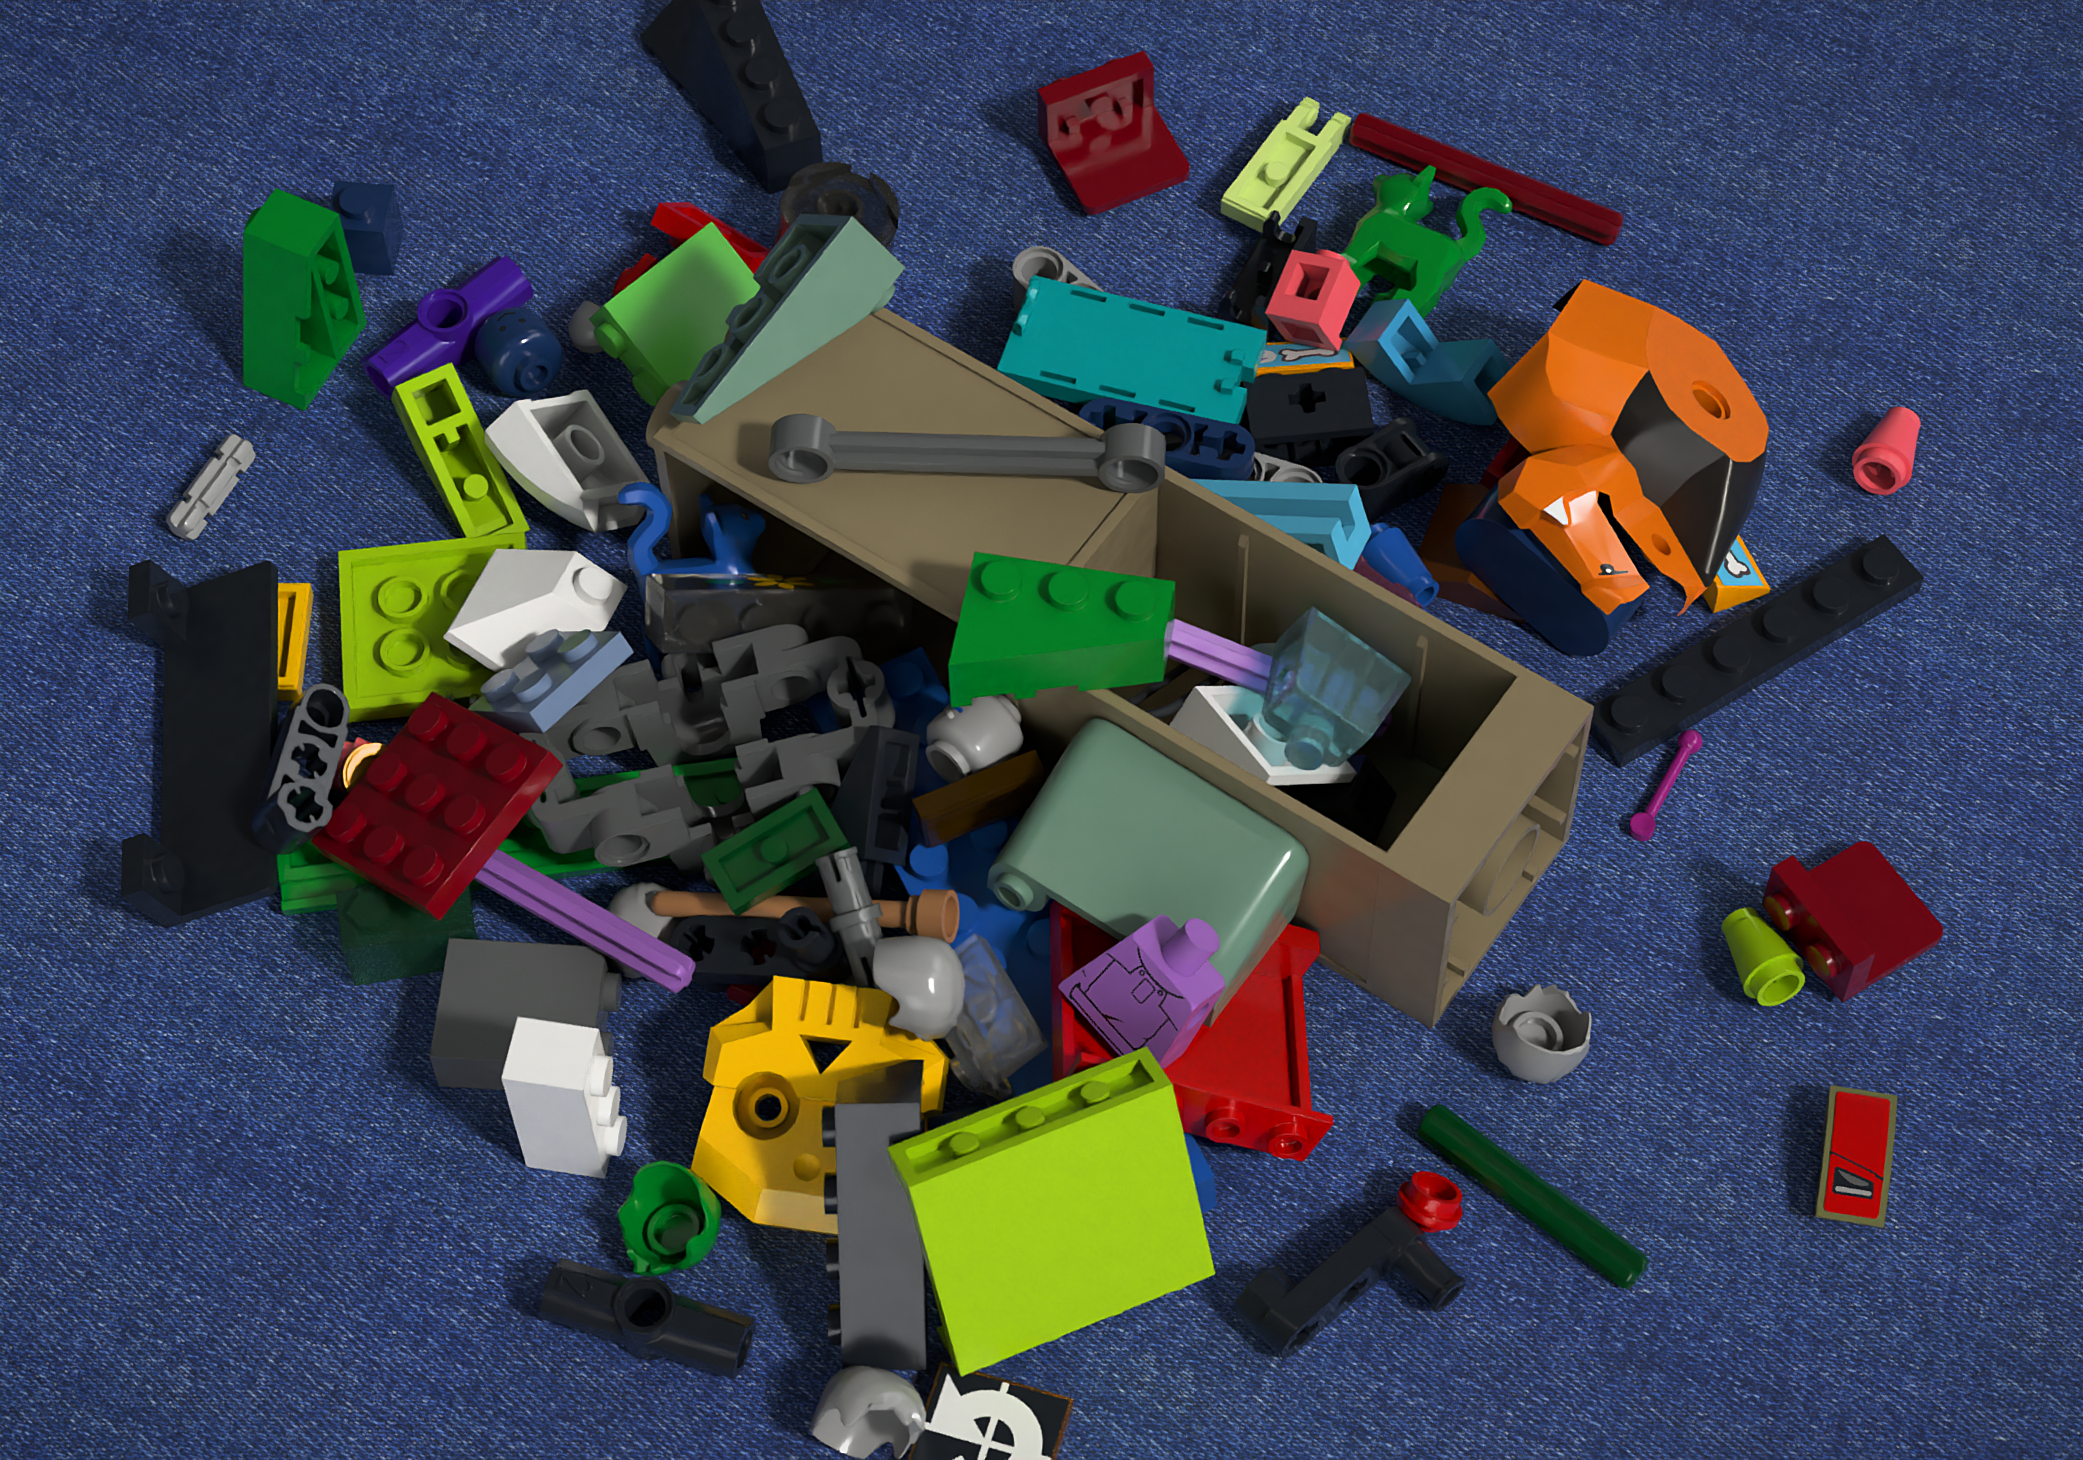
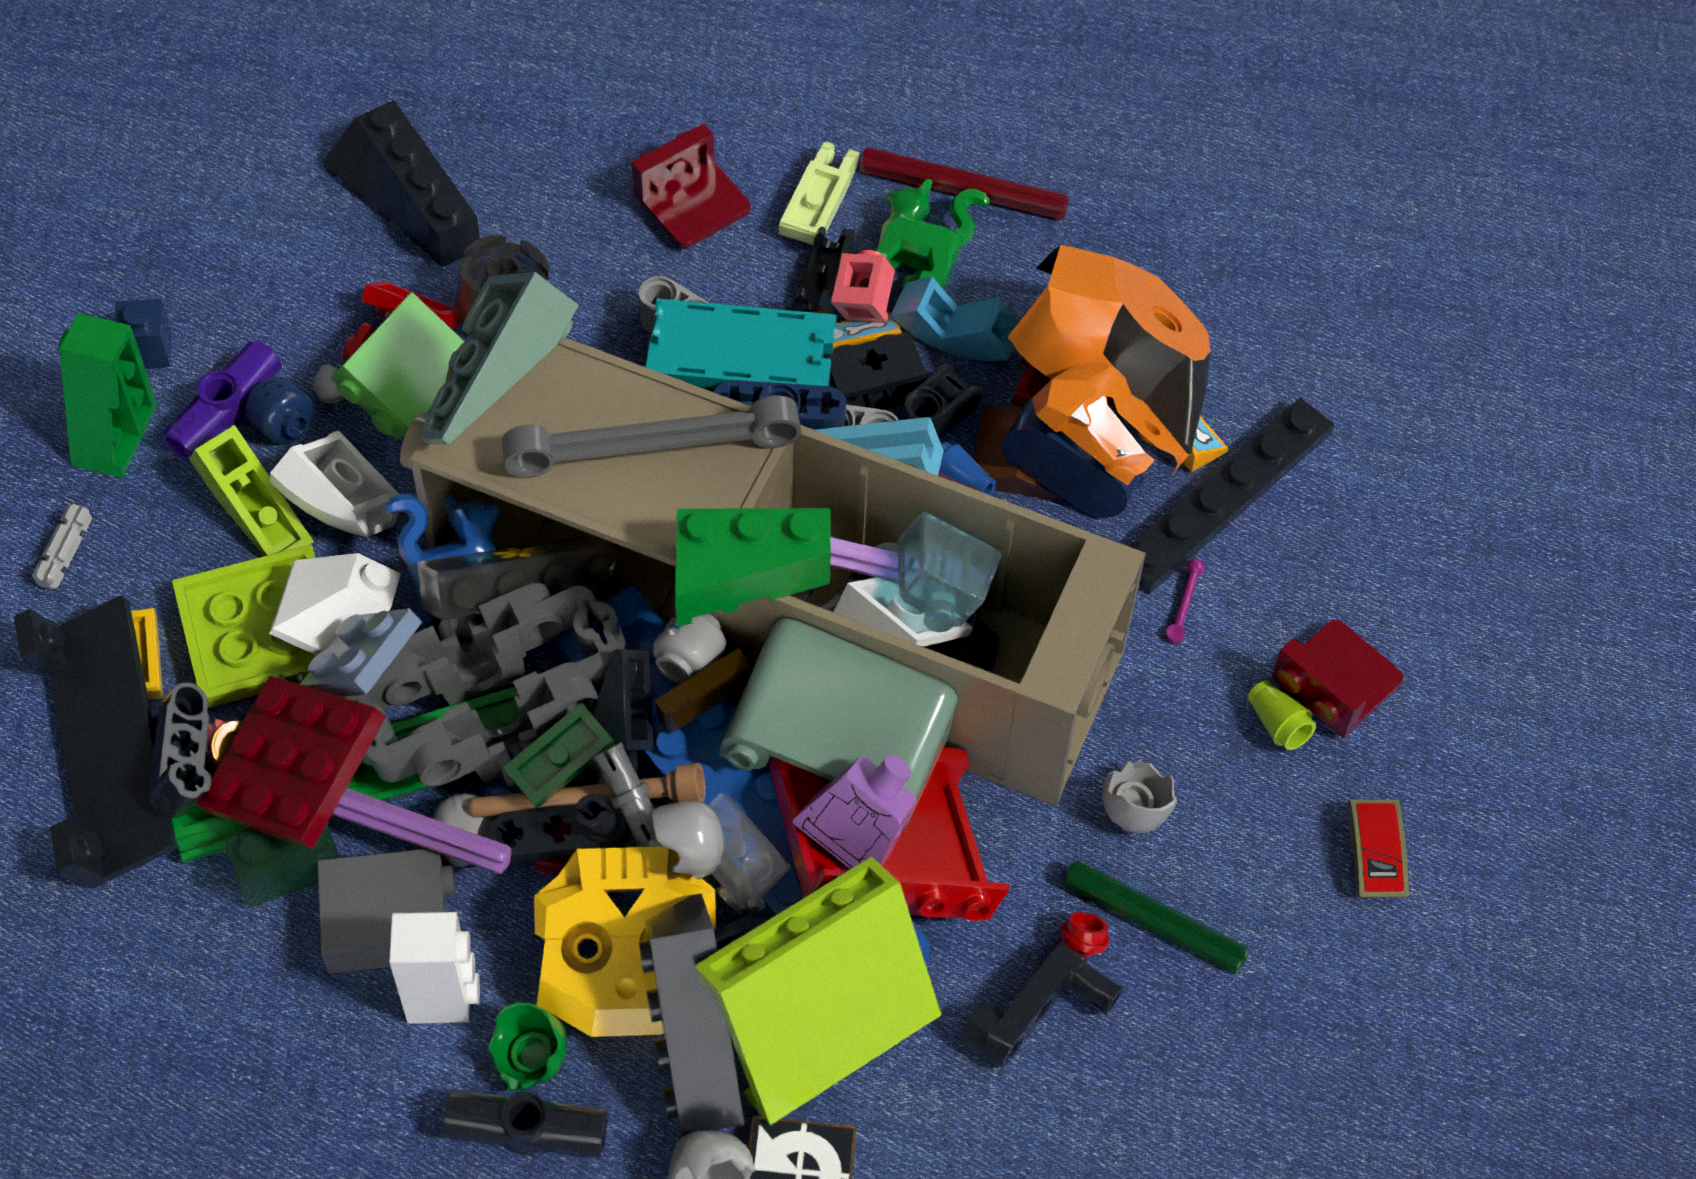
camera: 15 degrees left, 0 degrees up
(1888, 452) = (1290, 339): coral cone -> none

